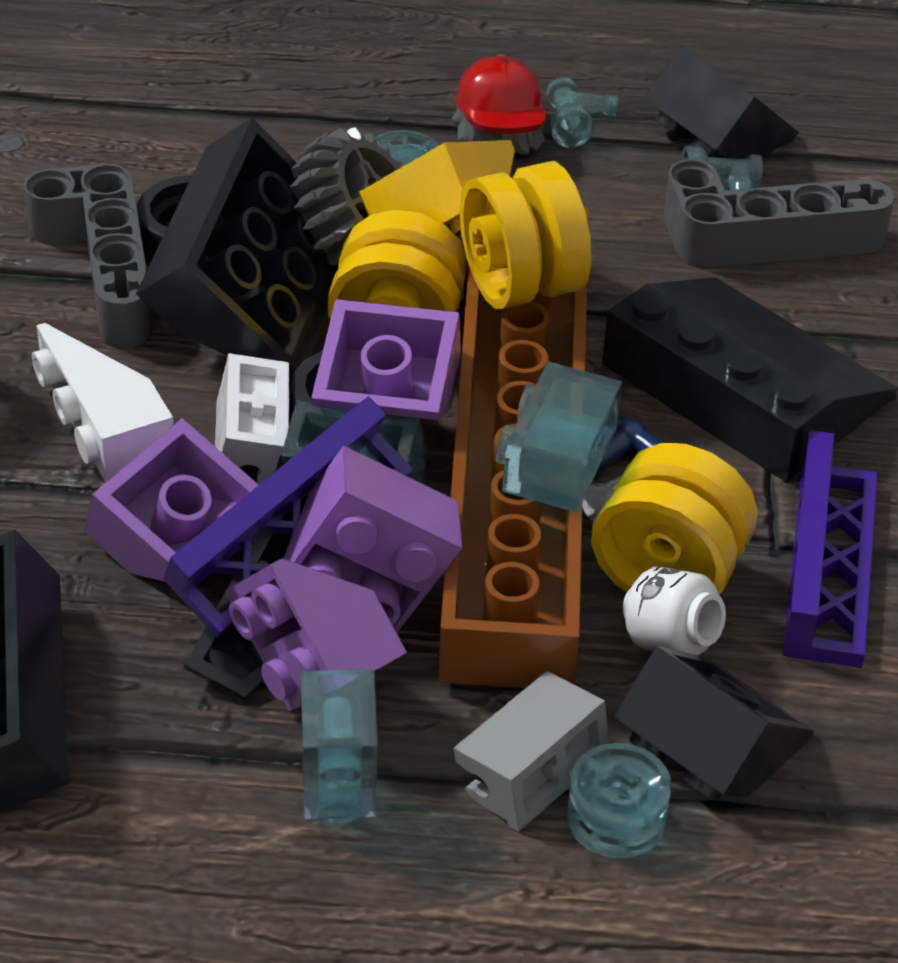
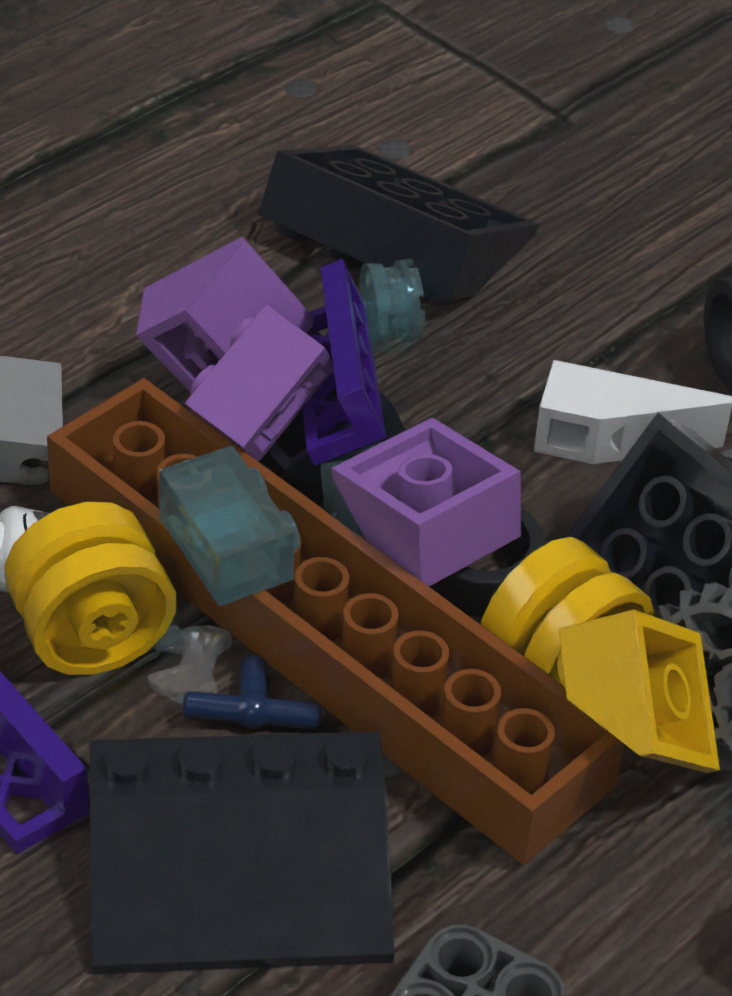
camera: 130 degrees right, 0 degrees up
(111, 598) = (392, 301): none -> clear light blue wheel
(164, 500) = (444, 369): medium lavender slope -> none
(253, 412) = (547, 480): white hinge -> none
(339, 744) = (108, 289): clear light blue brick -> none
(525, 234) = (471, 623): yellow wheel -> none

